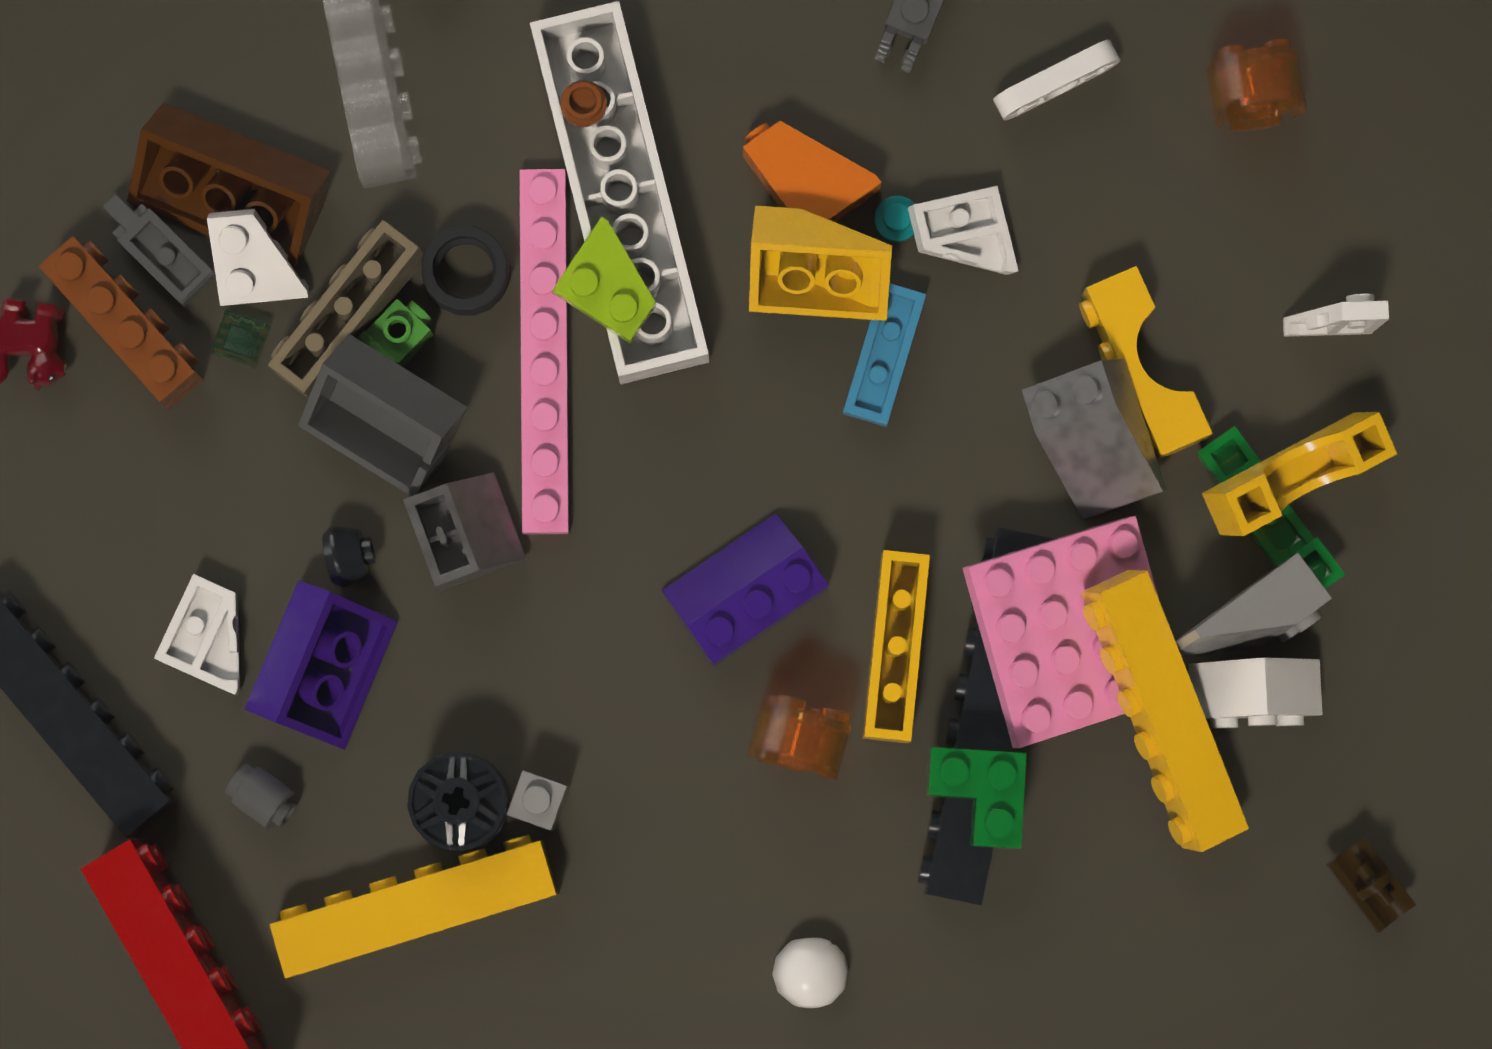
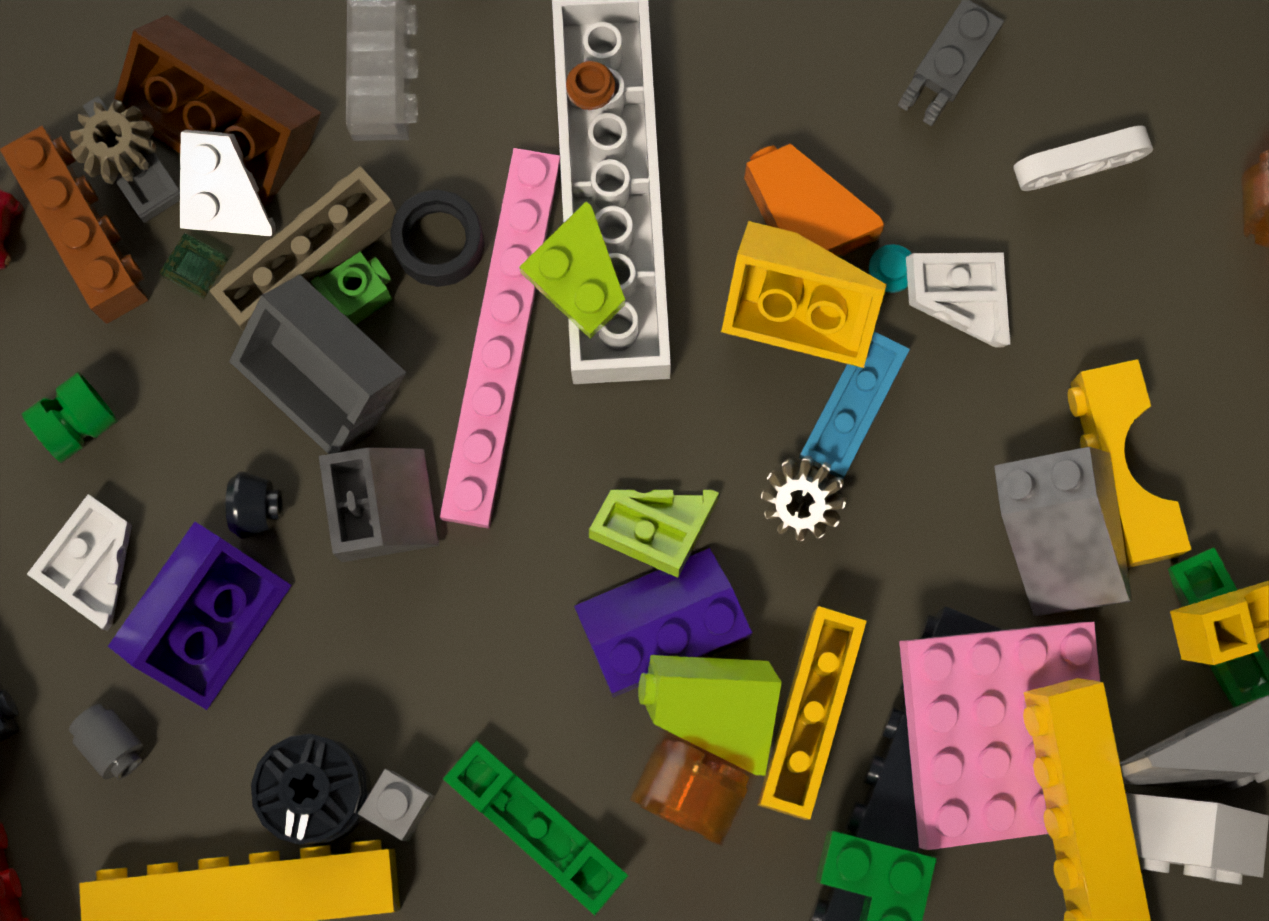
camera: 15 degrees right, 5 degrees down
(151, 223) = (100, 128): none -> dark tan gear
(159, 506) = (69, 417): none -> green wheel
(667, 796) = (536, 827): none -> green slope
(721, 503) = (653, 525): none -> lime wing
(808, 656) = (715, 705): none -> lime slope
(853, 435) = (797, 515): none -> dark tan gear

